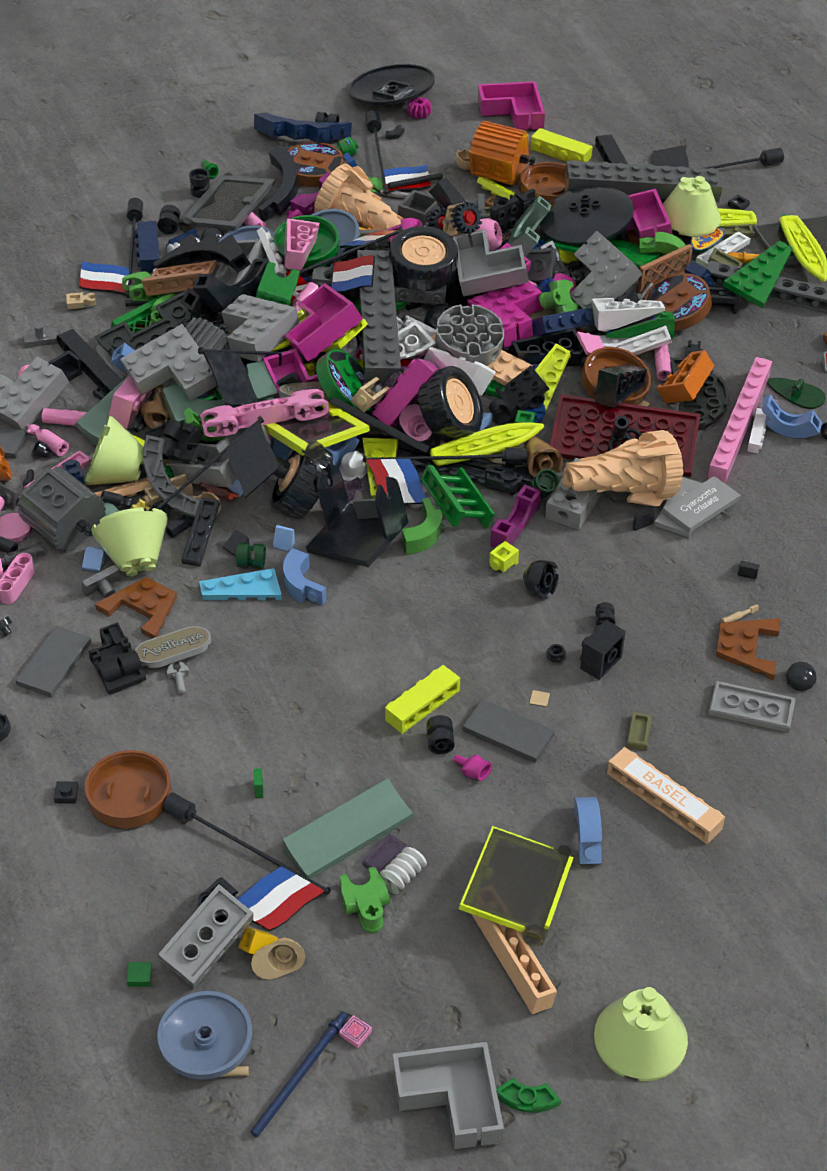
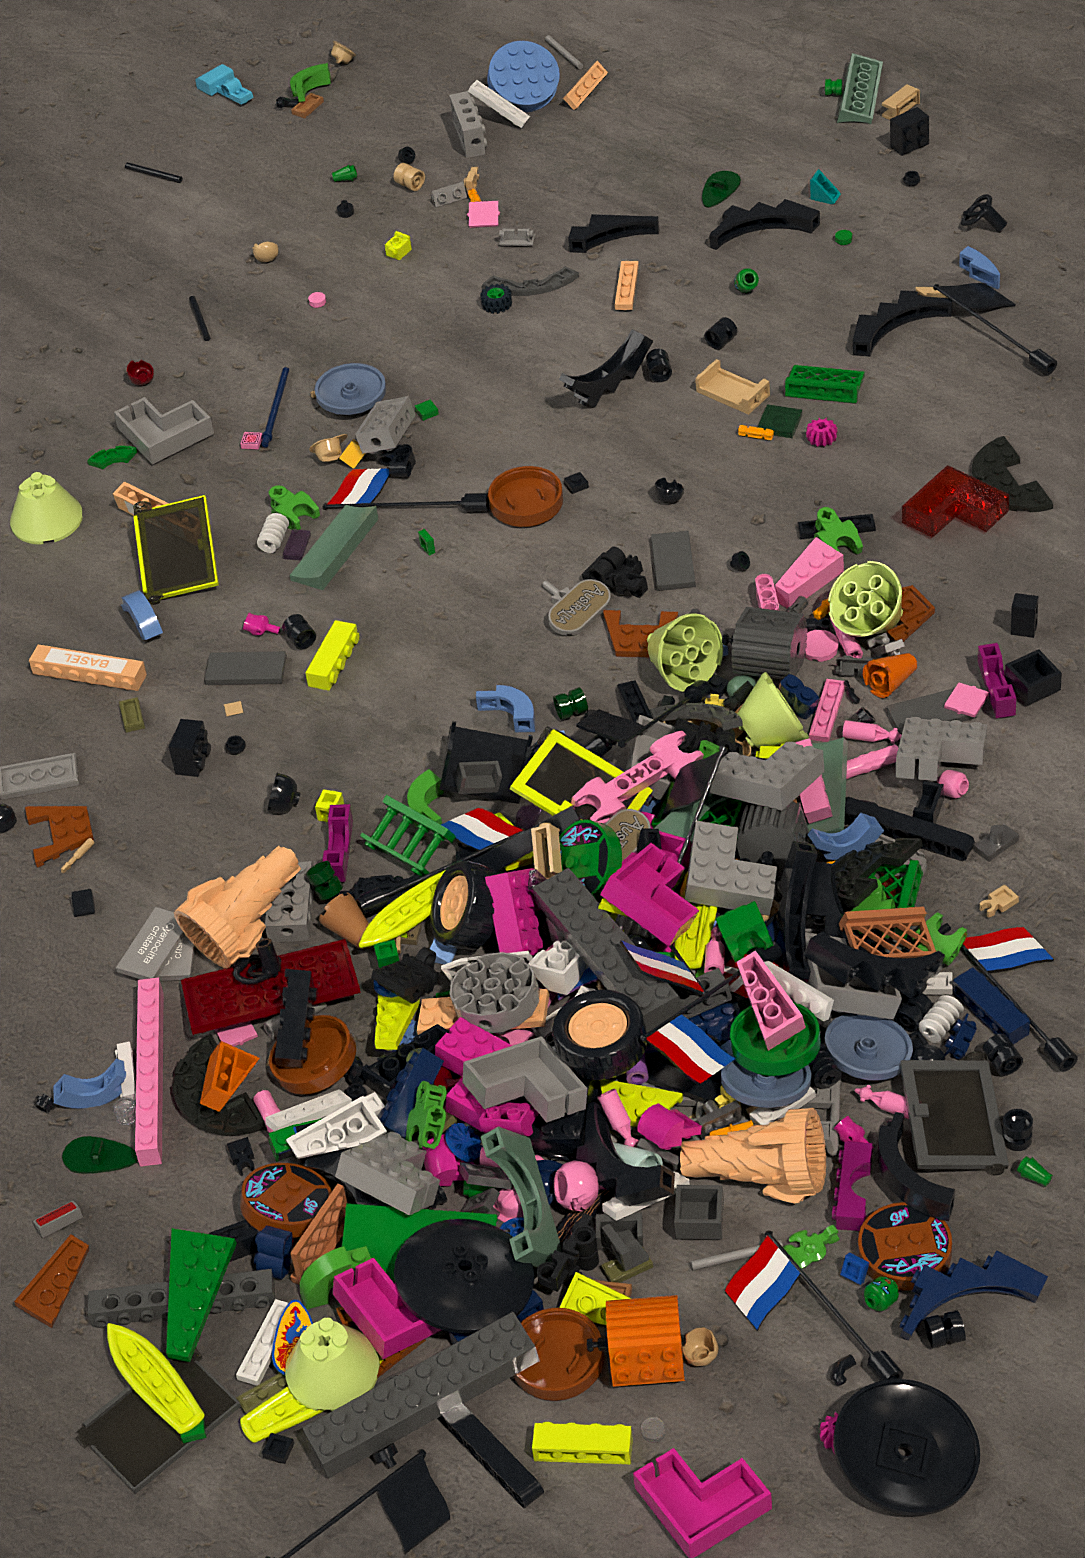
camera: 160 degrees right, 0 degrees up
(255, 584) = (543, 690): medium azure wing -> none
(415, 180) = (745, 1275): black bar -> none
(456, 219) = (625, 1141): black plate -> none
(589, 342) = (359, 1081): bright pink piece -> none
(604, 611) = (204, 792): black wheel -> none
(719, 256) = (254, 1313): olive tile -> none
(743, 257) = (235, 1340): light orange axle -> none

